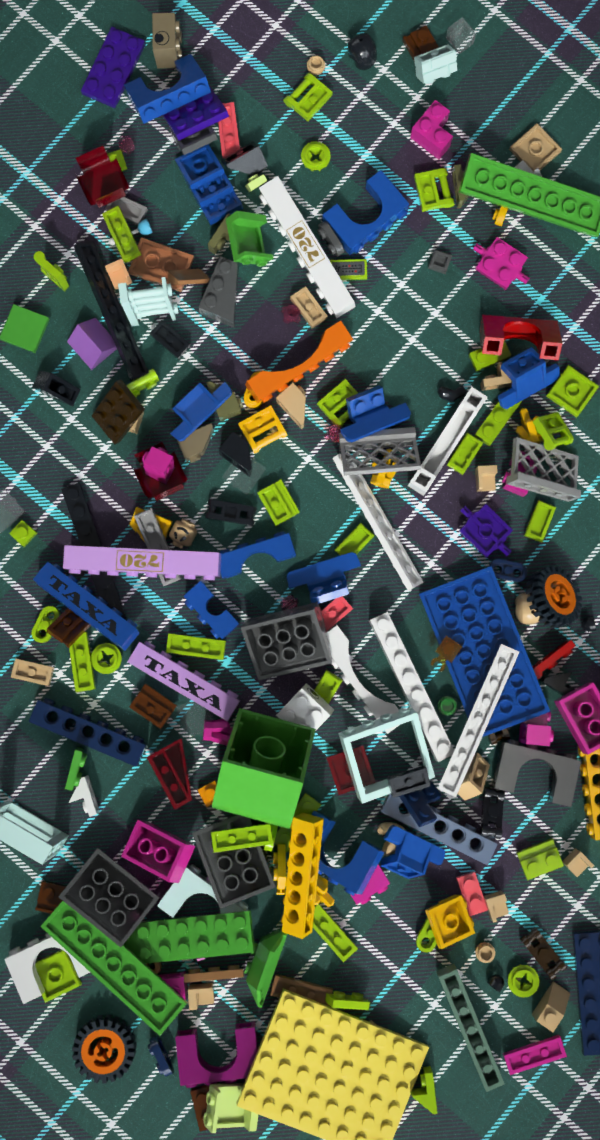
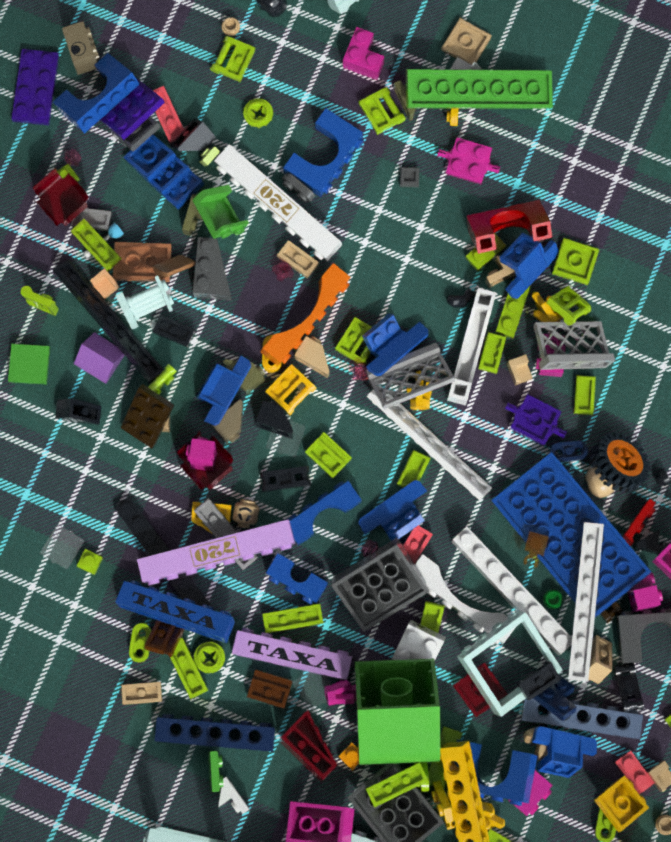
camera: 15 degrees left, 5 degrees down
(350, 269) = (326, 210): tile -> none

